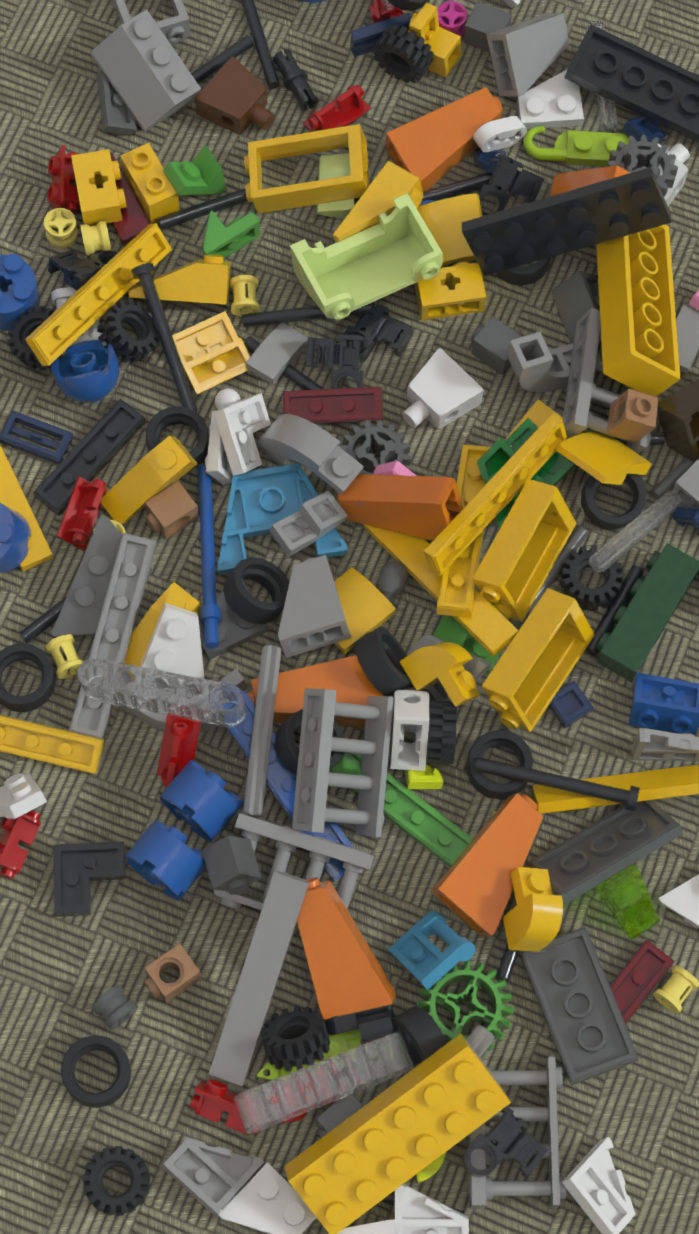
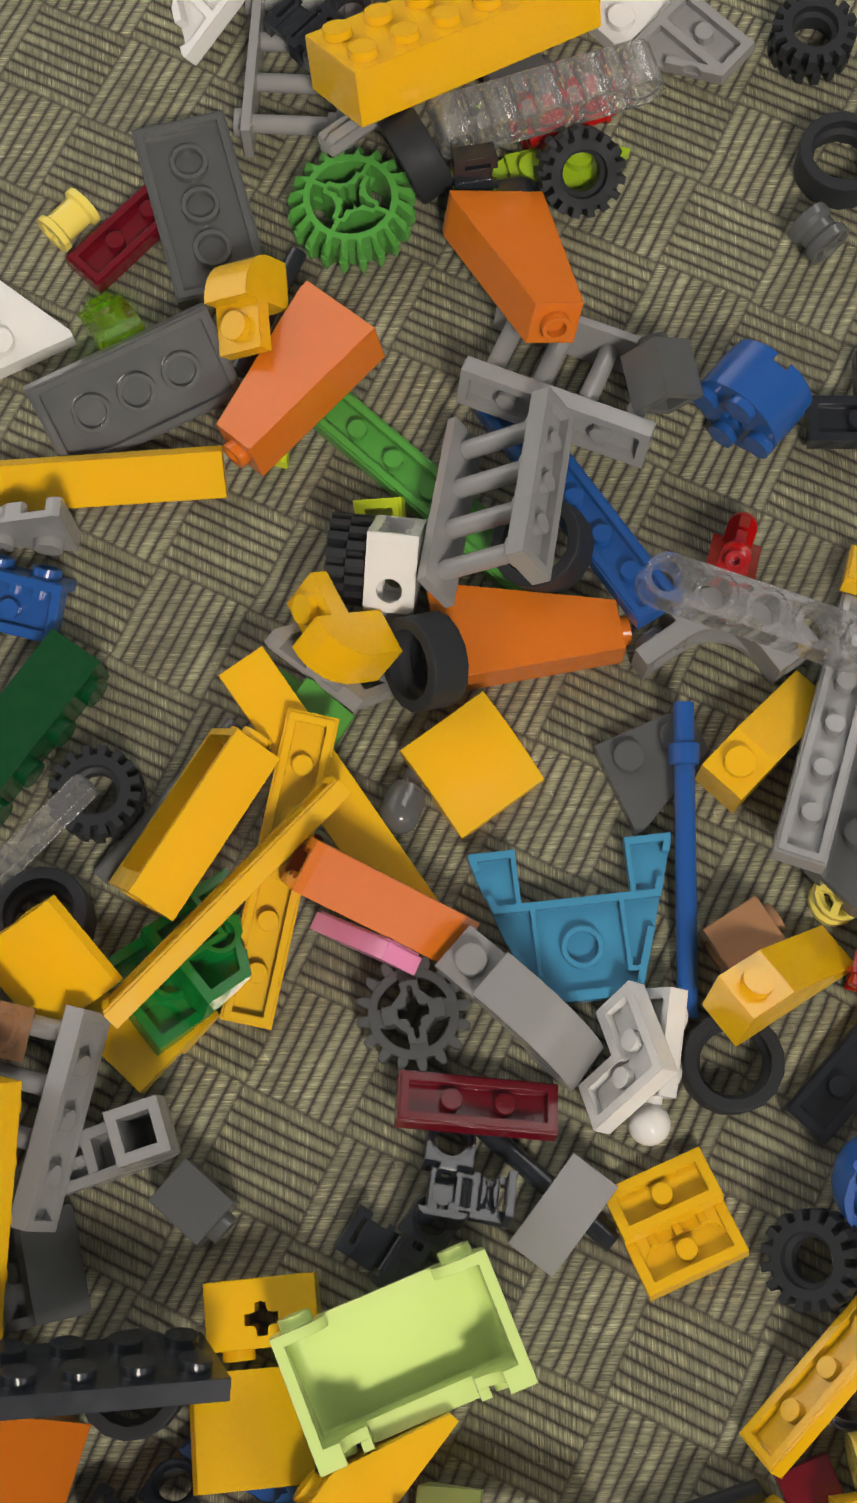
camera: 170 degrees left, 5 degrees up
(143, 273) = (793, 1356): black bar -> none
(175, 643) = (738, 702): white wing -> none
(177, 959) = (735, 287): medium nougat brick -> none
(195, 282) = (709, 1351): yellow slope -> none
(201, 800) = (703, 476): blue brick -> none
(215, 1100) = (672, 122): red hinge -> none
(228, 240) = (656, 1434): bright green slope -> none
(244, 295) = (623, 1342): light yellow bush -> none
(244, 603) = (574, 796): black tyre -> none
(259, 977) = (624, 233): light grey tile -> none
(262, 731) = (612, 560): light grey axle -> none
(292, 315) = (557, 1284): black bar -> none
(309, 523) = (526, 894): light grey slope -> none
(311, 609) = (527, 755): light grey slope -> none
(422, 957) = (404, 263): dark azure plate -> none
(441, 392) = (298, 1119): white torso -> none
(492, 739) = (260, 489): black tyre -> none
(558, 782) = (90, 444): black bar -> none
(570, 705) = (158, 611): dark blue tile -> none
(573, 636) = (196, 648): yellow window -> none
(621, 598) = (80, 736): black bar -> none

